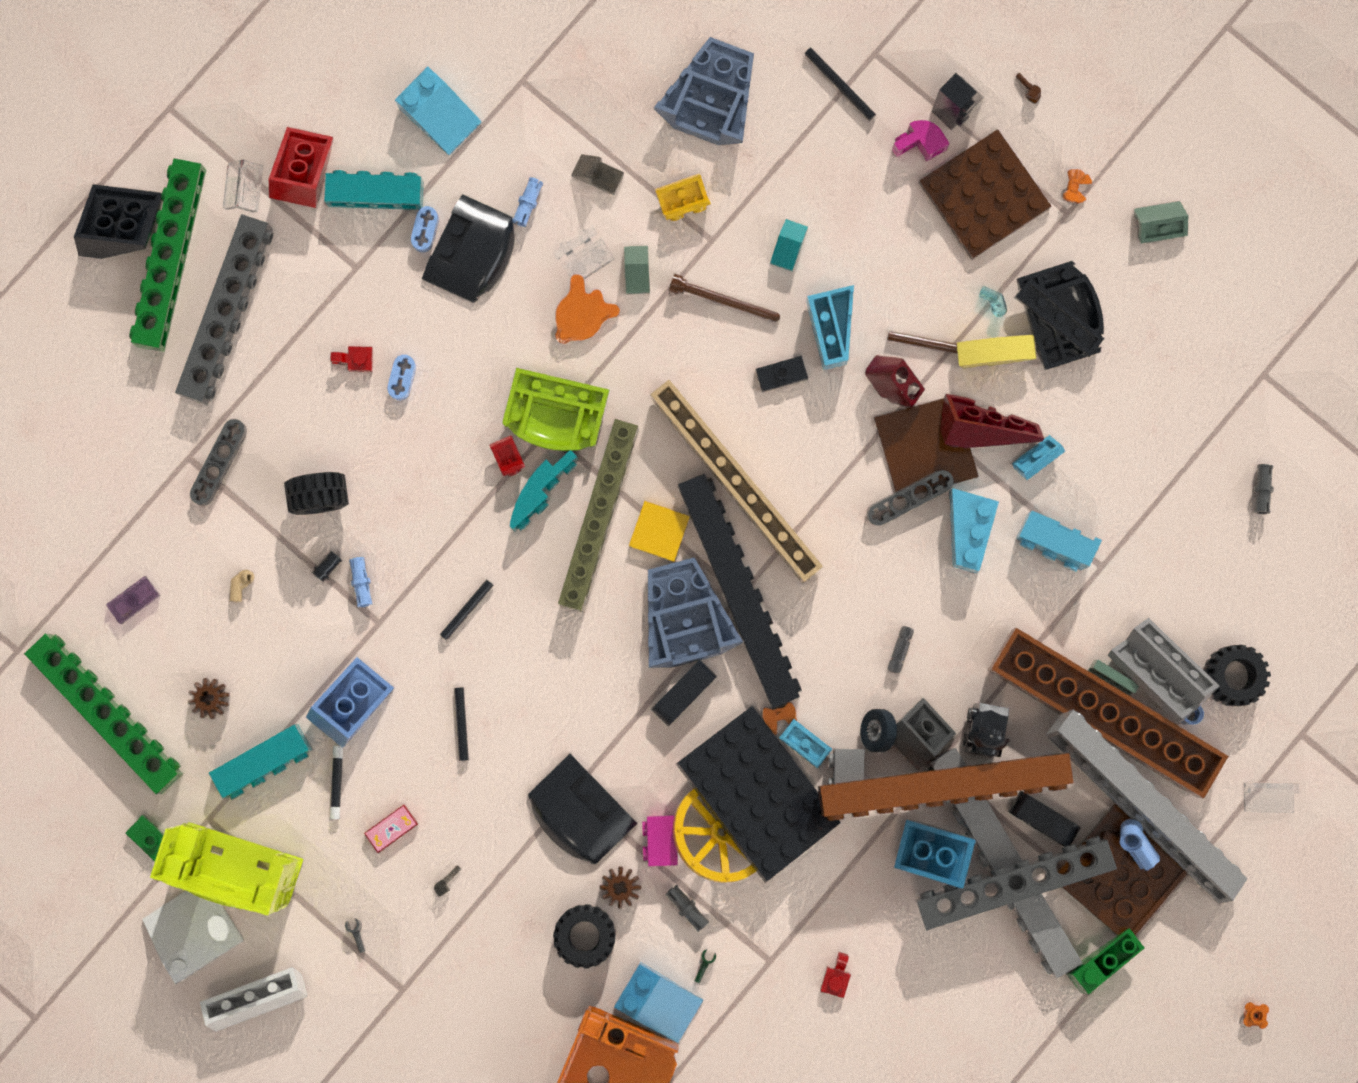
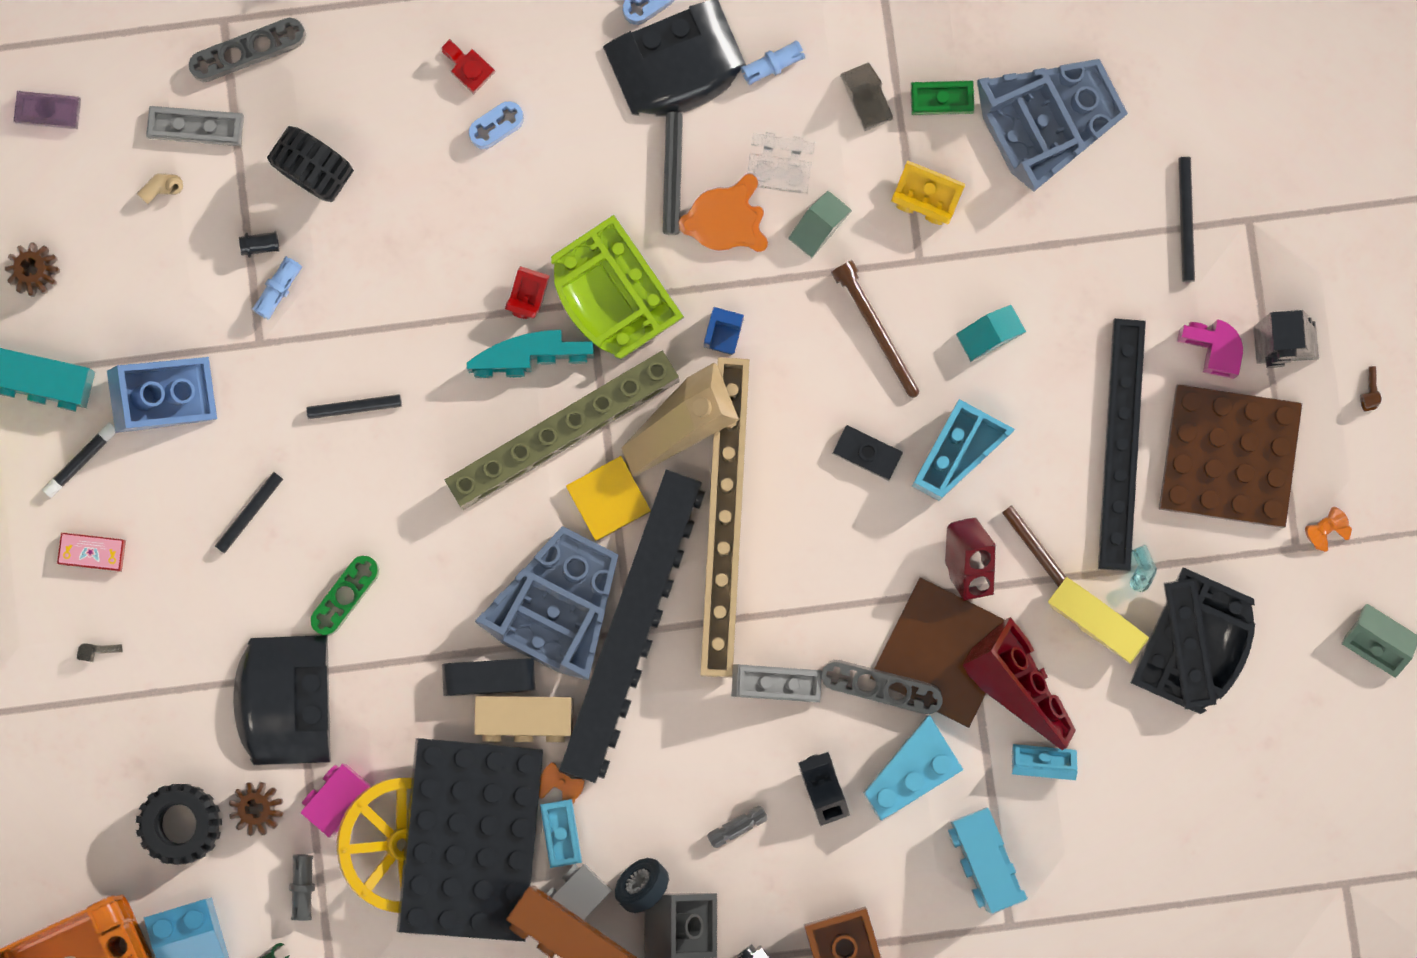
camera: 40 degrees right, 0 degrees up
(227, 532) = (195, 125): none -> light grey tile
(527, 315) = (672, 173): none -> dark grey axle
(563, 702) = (358, 595): none -> green beam
(638, 377) = (723, 331): none -> blue panel
(641, 137) = (942, 97): none -> green plate
(662, 446) = (688, 416): none -> tan wedge
(725, 697) = (523, 718): none -> tan brick
(850, 548) = (776, 683): none -> light grey tile
(919, 242) = (1121, 445): none -> black tile
(929, 583) = (823, 788): none -> black brick

